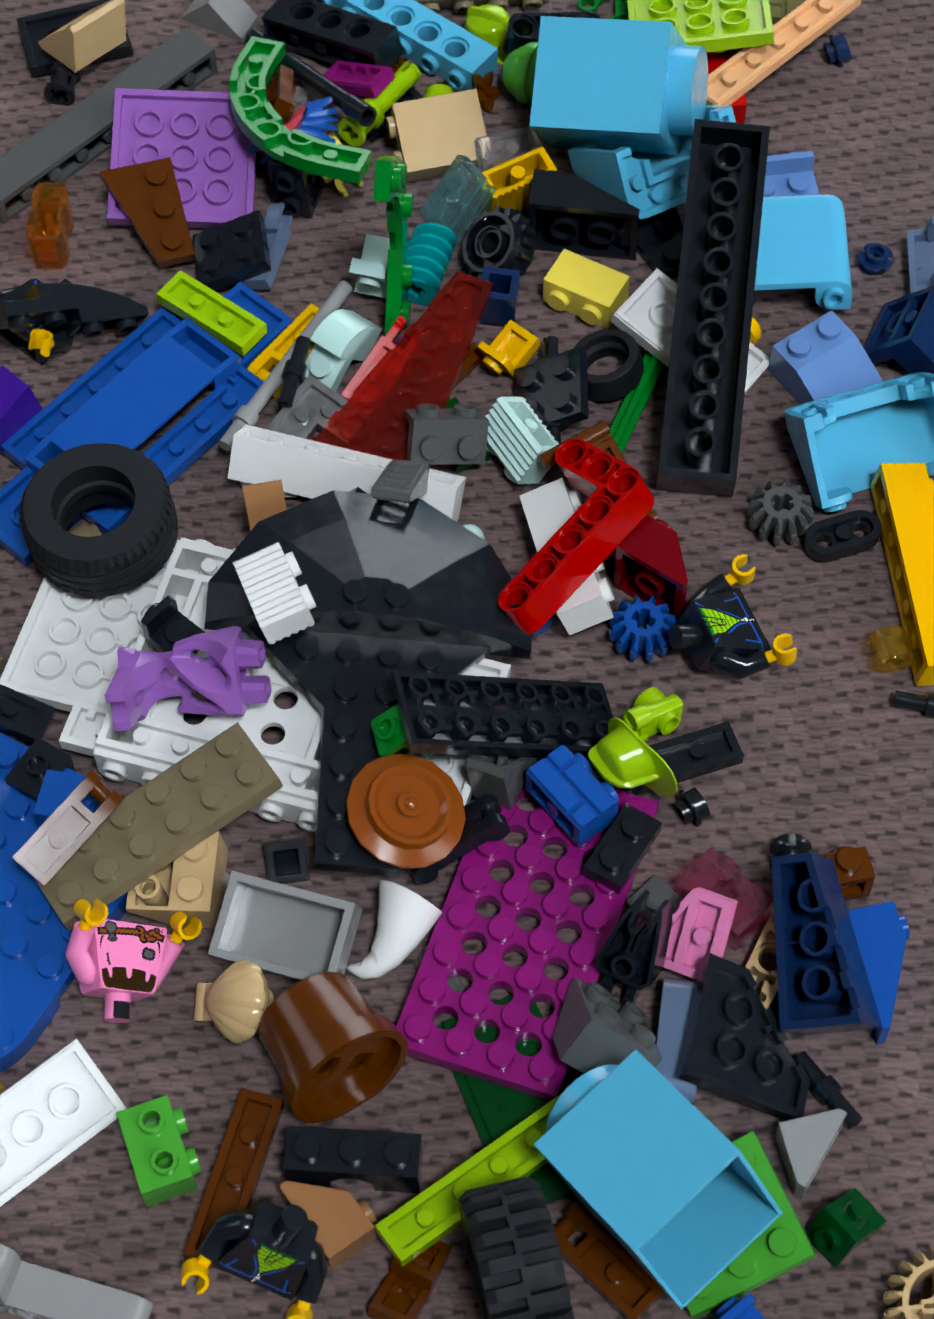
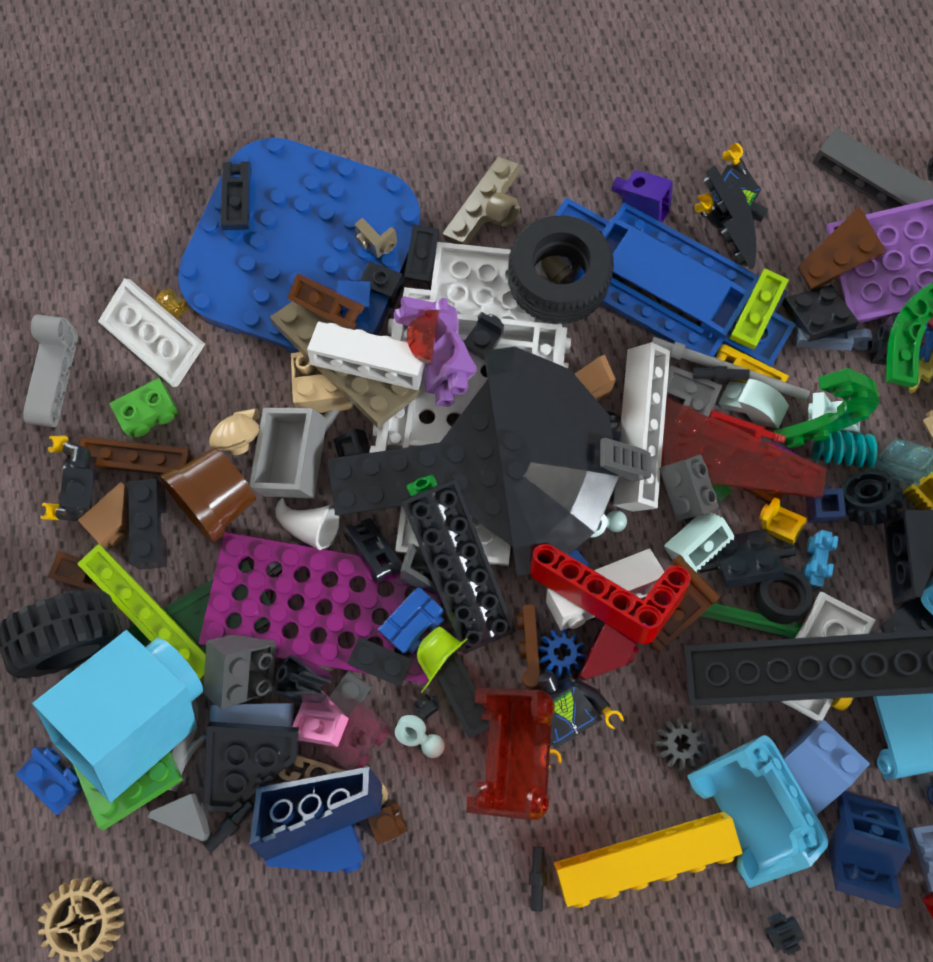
camera: 80 degrees right, 15 degrees up
(50, 225) = (811, 188): clear orange brick -> none
(123, 958) = (259, 359): torso -> none
(171, 683) = (422, 336): none -> clear red tile
(173, 772) = (365, 355): none -> white brick
(274, 592) = (499, 386): white brick -> none
(405, 811) = (371, 510): dark orange piece -> none
(557, 318) = (817, 566): none -> dark azure plate
(585, 288) = (852, 570): light yellow brick -> none
(628, 663) = (529, 647): none -> reddish brown plate
(654, 713) = (494, 672): lime plate -> none
(724, 827) = (412, 731): none -> light aqua plate
(773, 681) = (516, 754): none -> clear red windscreen
(789, 844) = (399, 781): black plate -> none
(839, 535) = (670, 793): black plate -> none
(844, 1226) = (135, 848): dark green bracket -> none
(890, 649) = (576, 840): clear yellow wheel -> none

